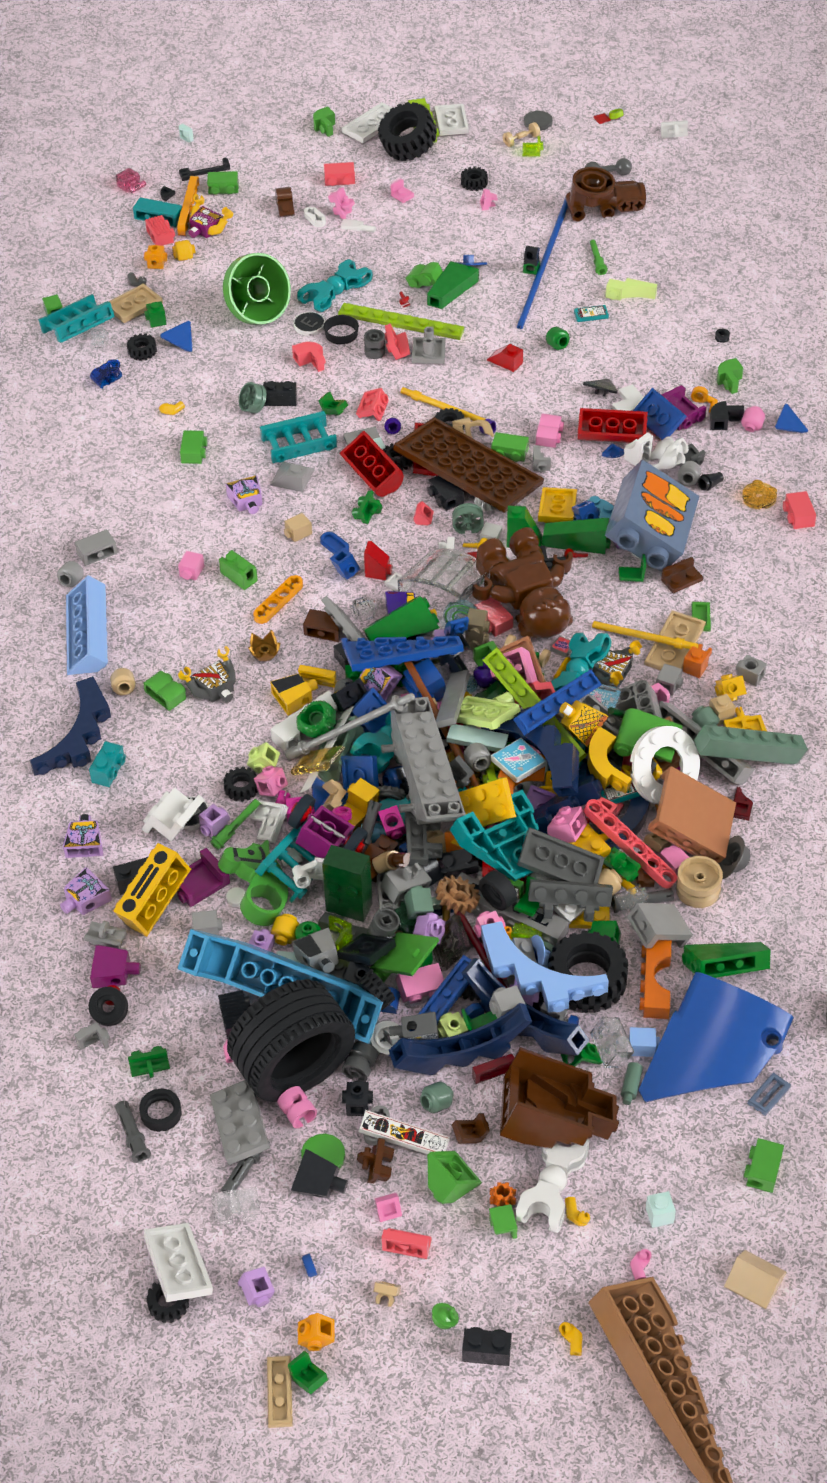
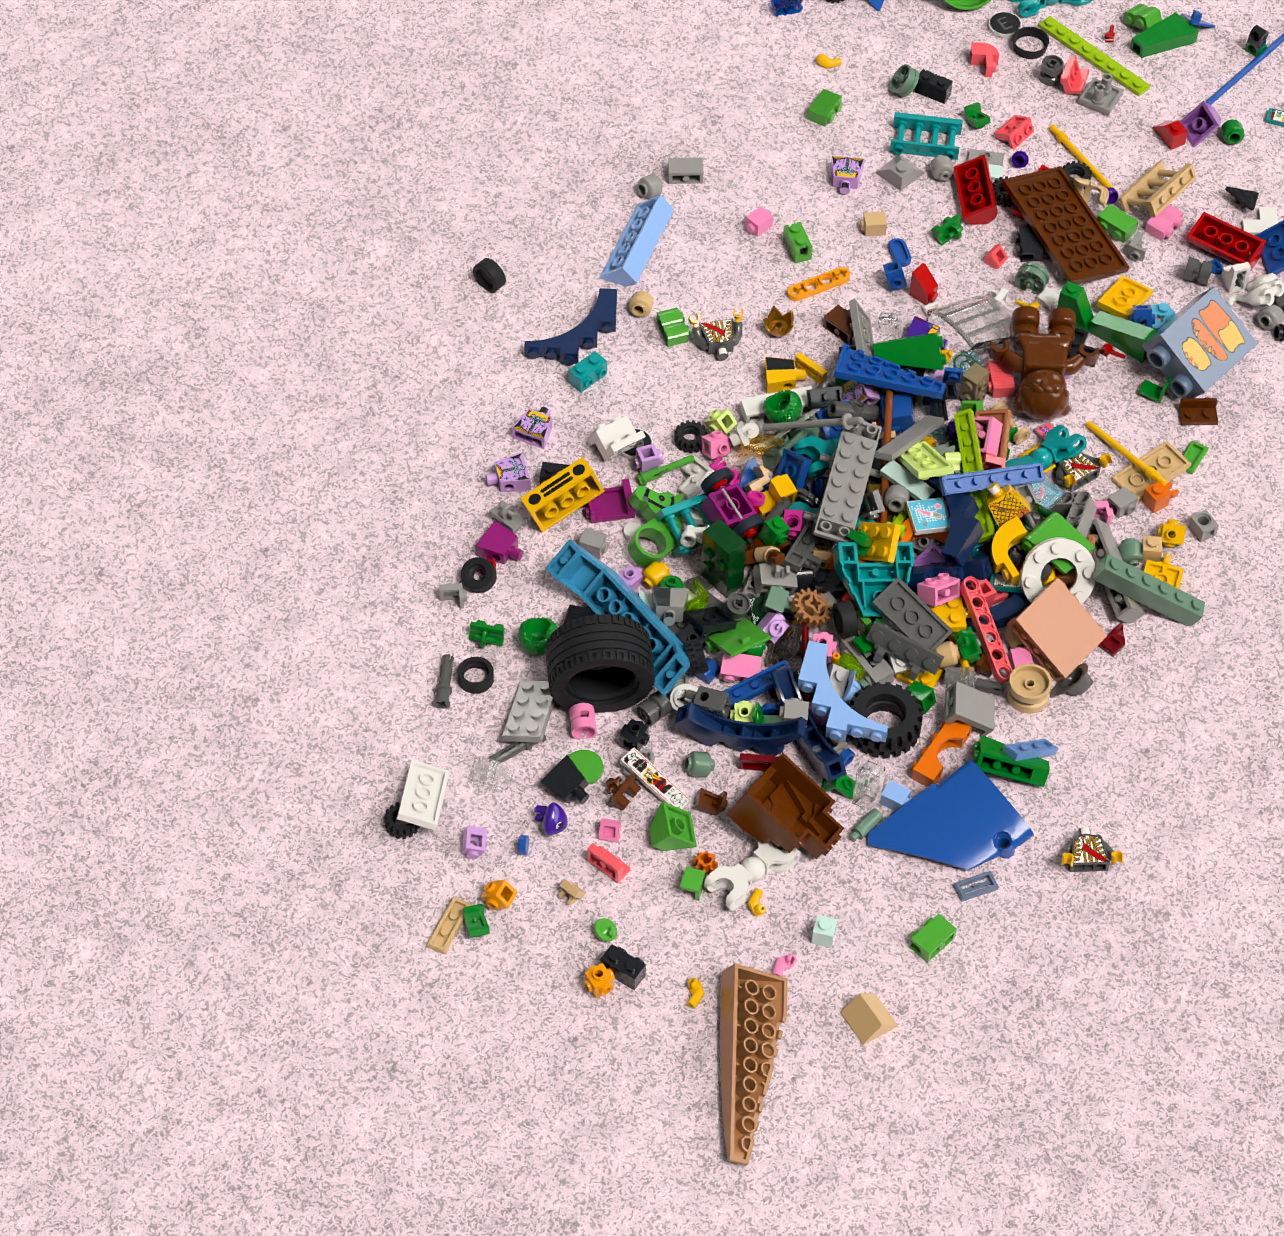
camera: 25 degrees right, 5 degrees up
(204, 1040) = (535, 633): none -> green hair
(291, 760) = (743, 433): none -> white hips
(325, 1221) = (553, 818): none -> dark purple piece
(329, 458) = (942, 168): none -> light grey head
(382, 837) = (774, 531): none -> green brick
(383, 695) = (856, 408): none -> dark grey piece
(472, 1380) = (599, 980): none -> light orange brick
(475, 806) = (862, 539): none -> green bracket
(529, 339) = (1200, 122): none -> medium lavender slope
(538, 408) = (1159, 198): none -> tan fence
(610, 458) = (1204, 273): none -> dark grey wheel
(738, 938) = (1030, 749): none -> medium blue tile

